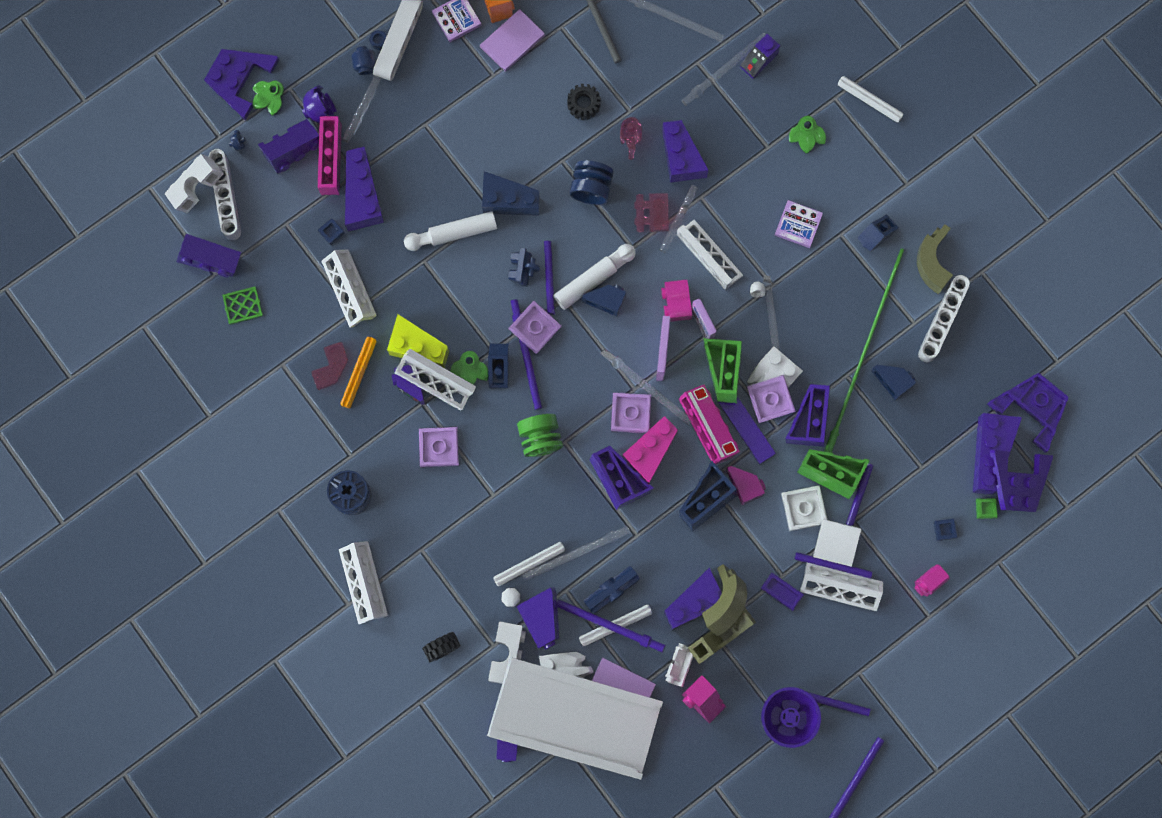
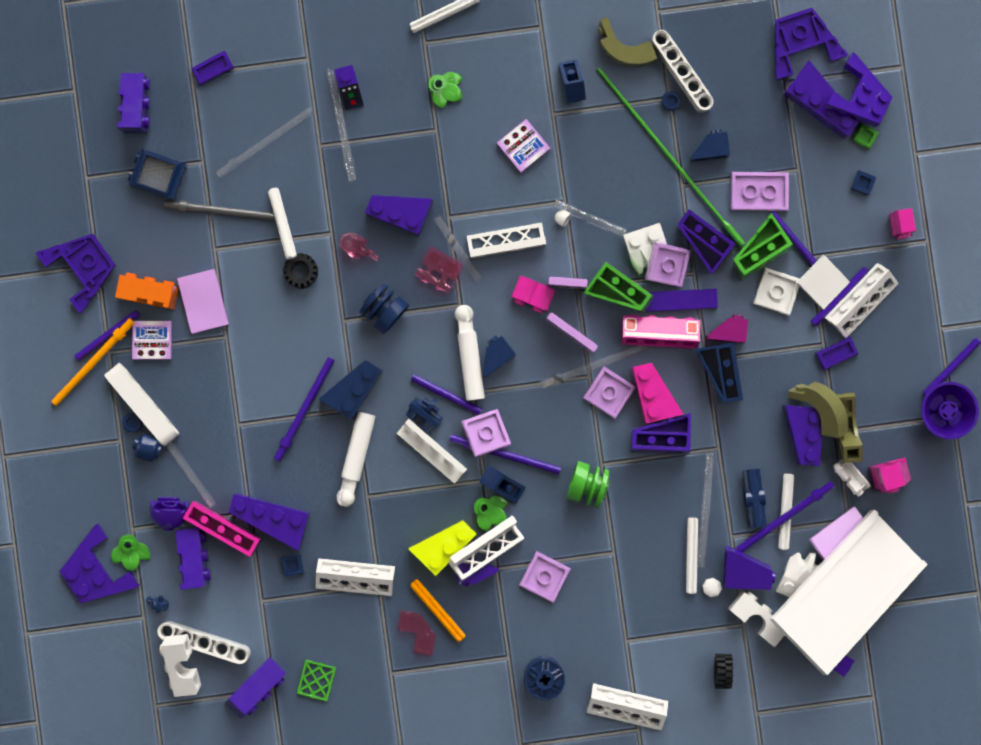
camera: 65 degrees left, 10 degrees up
(432, 169) = (286, 441): none -> dark purple bar
(493, 291) = (431, 451): none -> white fence
(614, 64) = (282, 223): none -> white axle
(882, 444) = (759, 191): none -> lavender tile
(912, 325) = (670, 101): none -> dark blue tile

